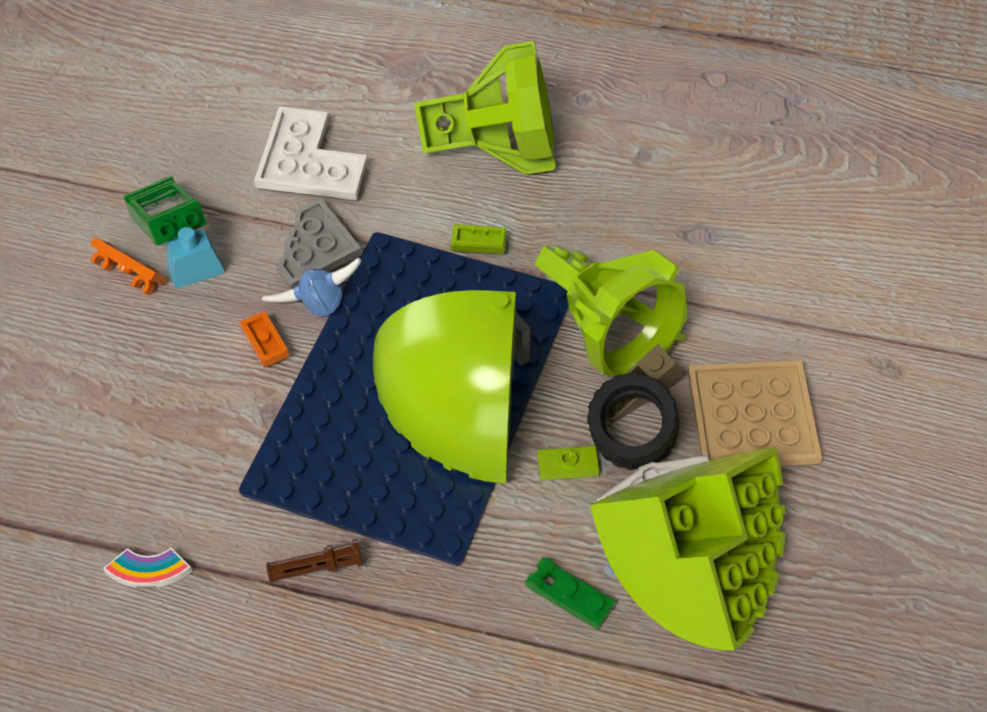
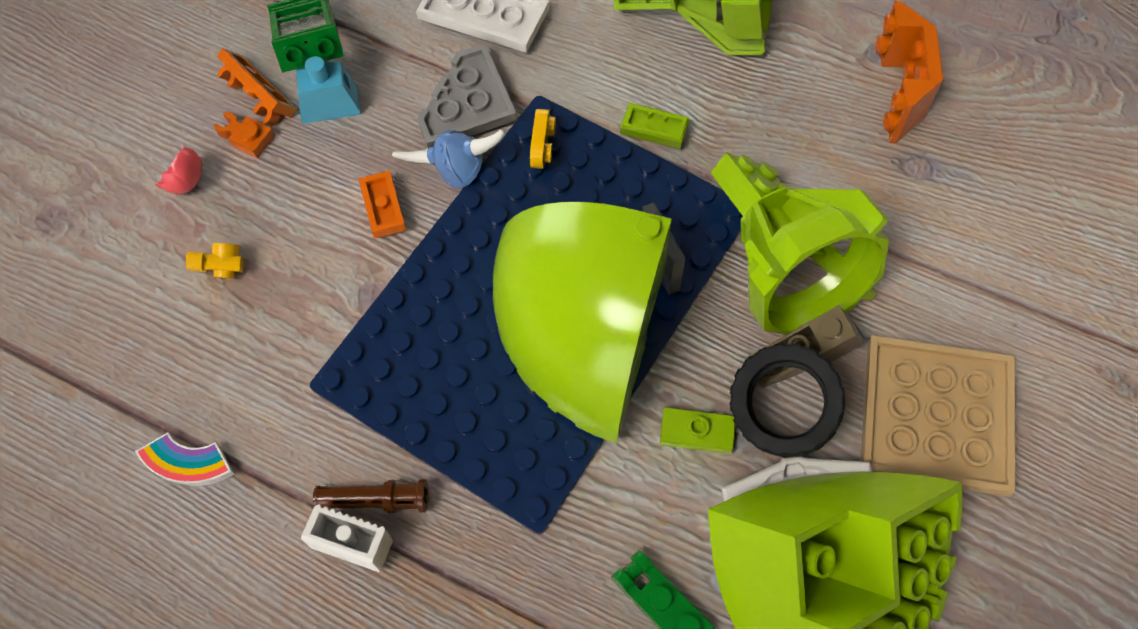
camera: 15 degrees right, 10 degrees up
(83, 343) = (183, 173): none -> coral hair
(130, 306) = (247, 135): none -> orange plate
(138, 407) = (223, 260): none -> yellow plate
(305, 593) = (347, 538): none -> white brick
(388, 255) = (540, 148): none -> yellow plate
(673, 141) = (911, 44): none -> orange slope

